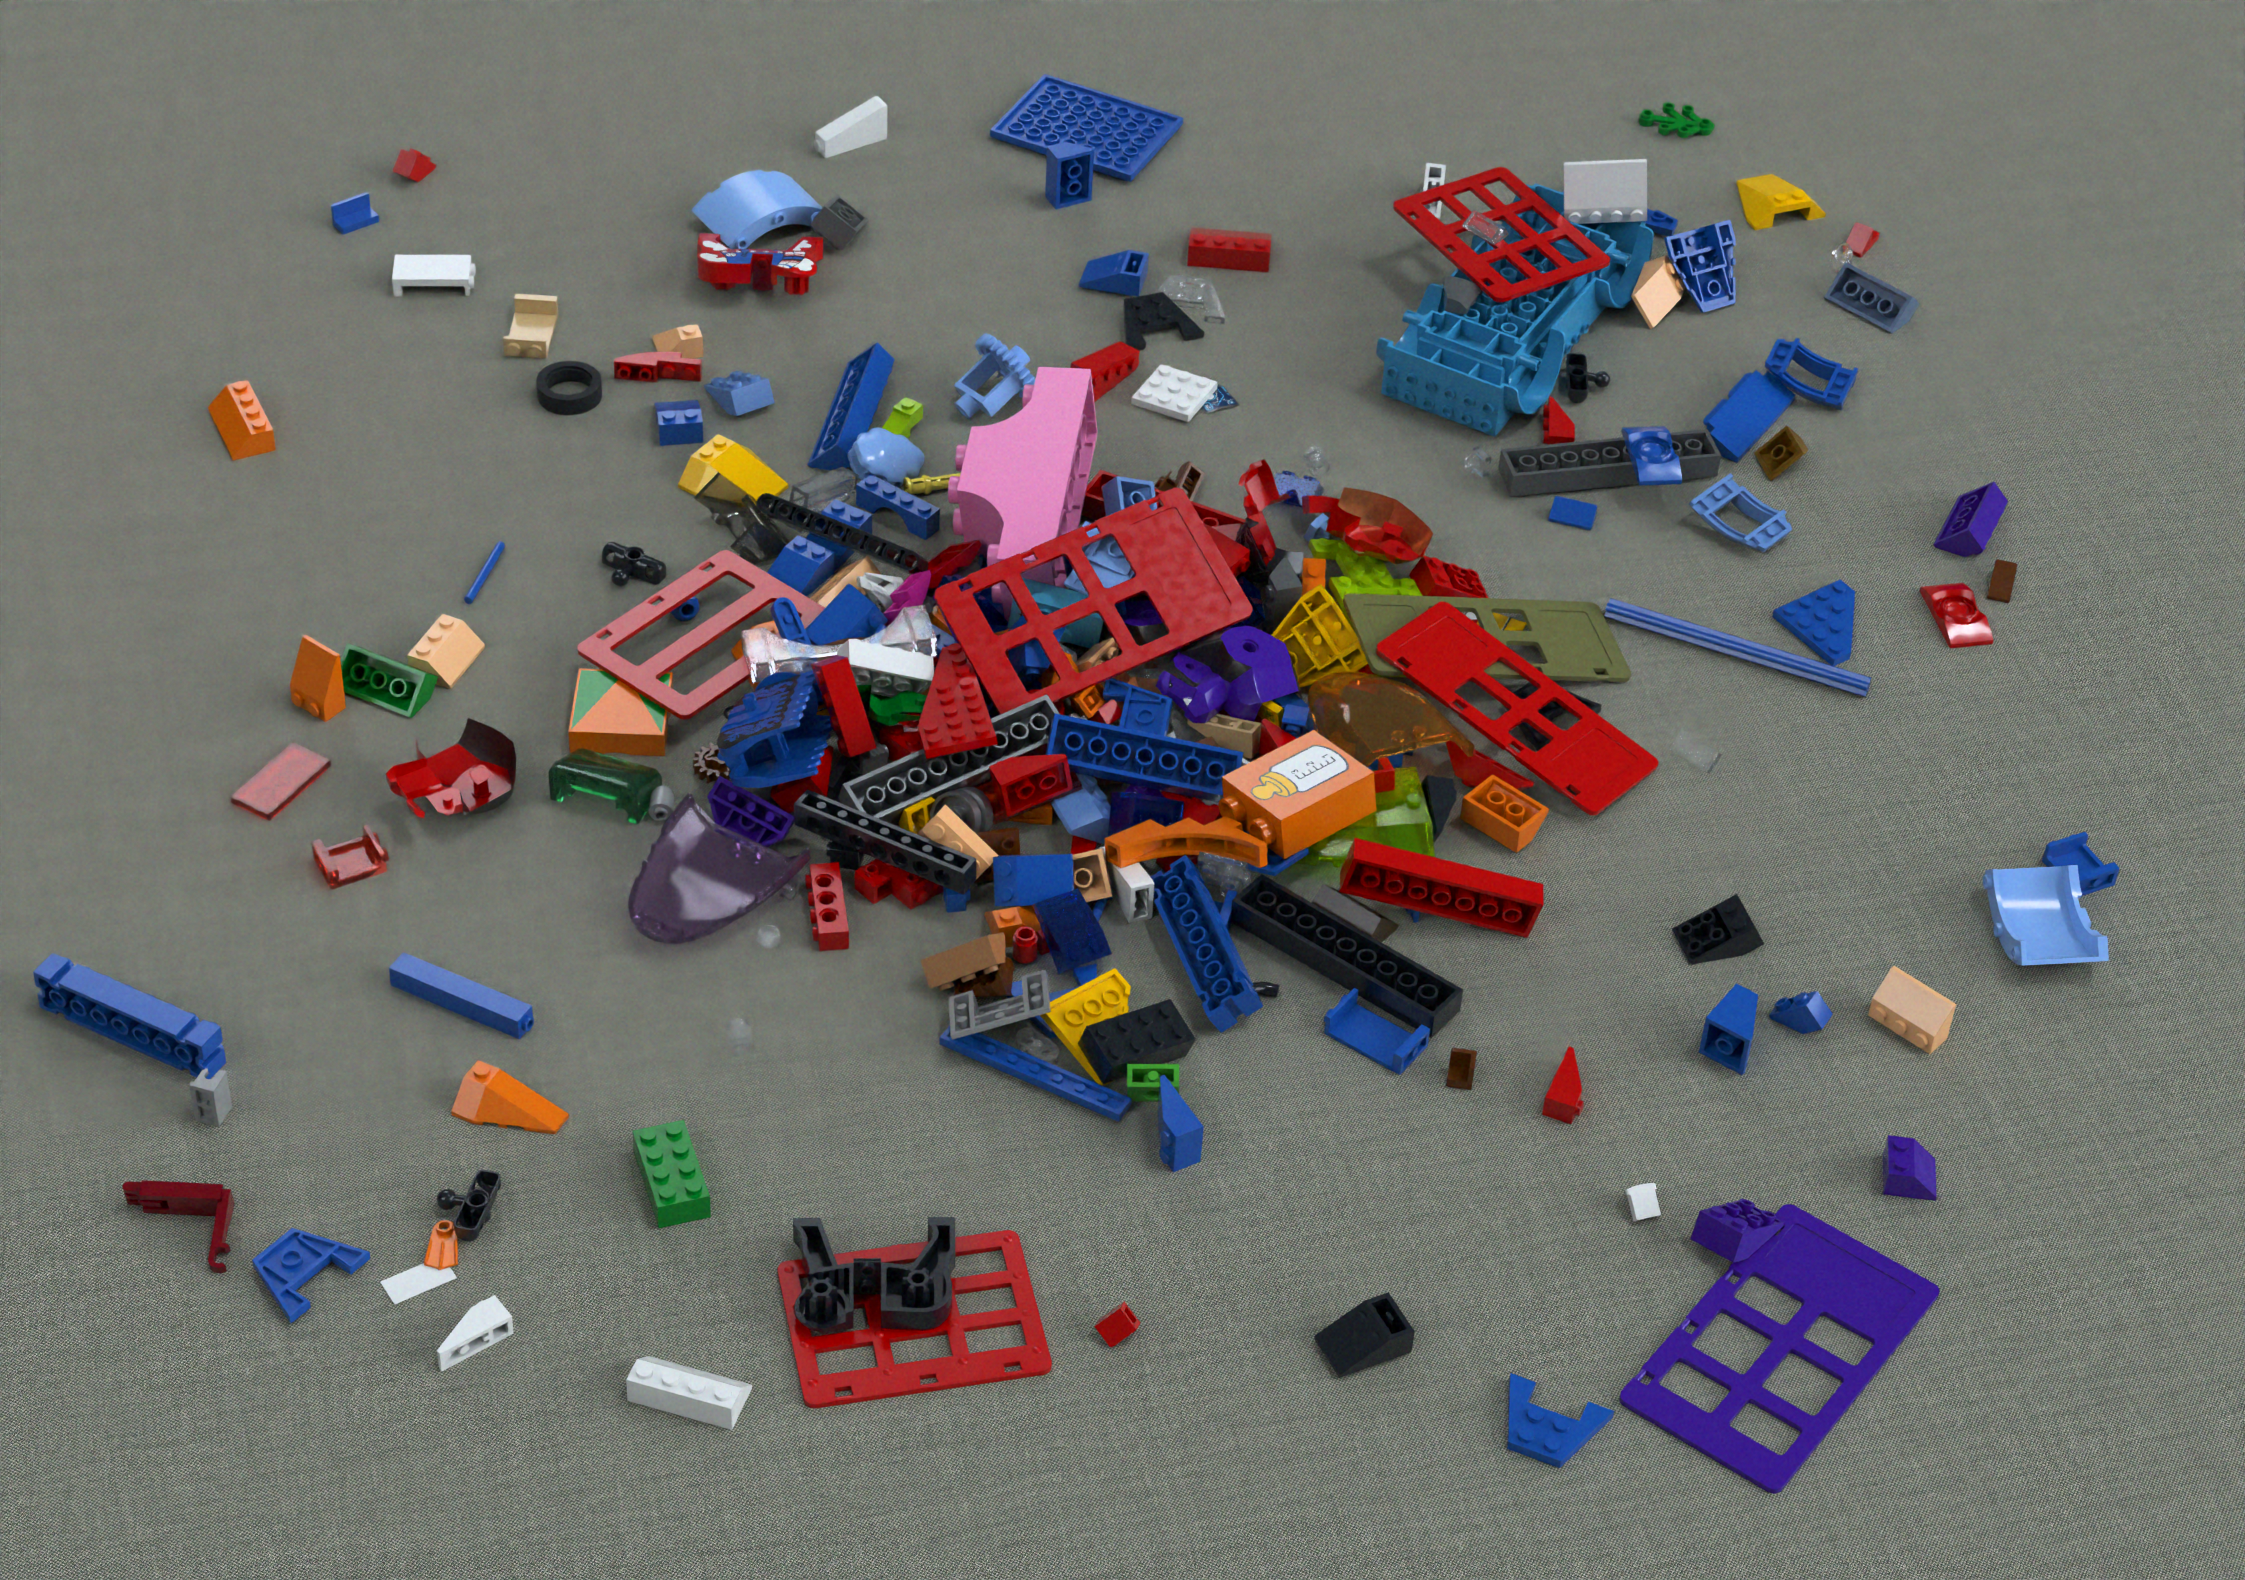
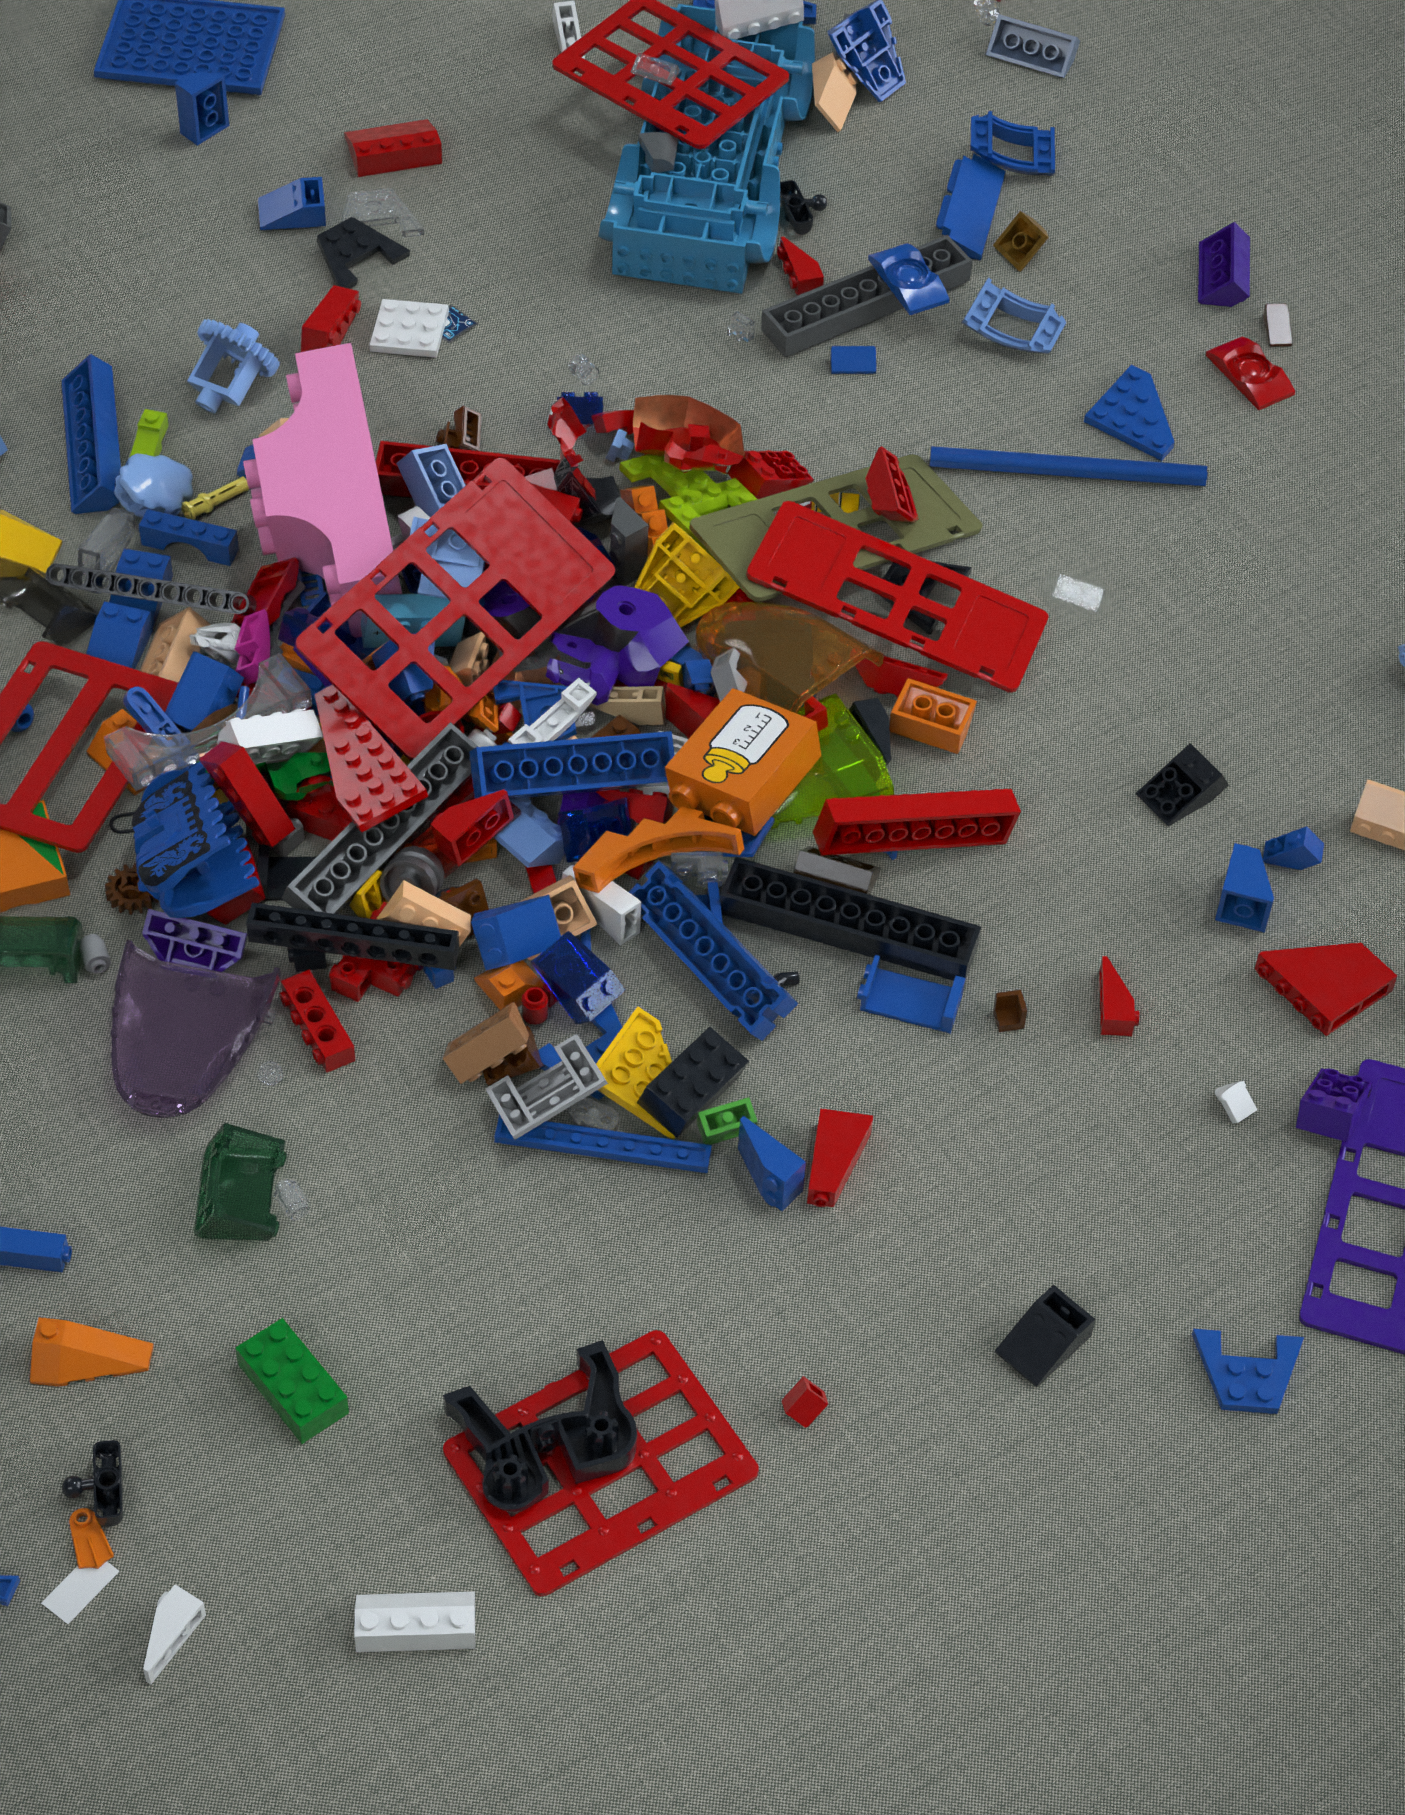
camera: 20 degrees left, 10 degrees up
(700, 1012) = (238, 1185): none -> clear green windscreen
(1159, 718) = (559, 717): none -> white slope
(1242, 1137) = (836, 1151): none -> red slope
(1316, 719) = (725, 673): none -> light grey slope
(1551, 619) = (889, 488): none -> red wedge
(1782, 1129) = (1327, 981): none -> red slope

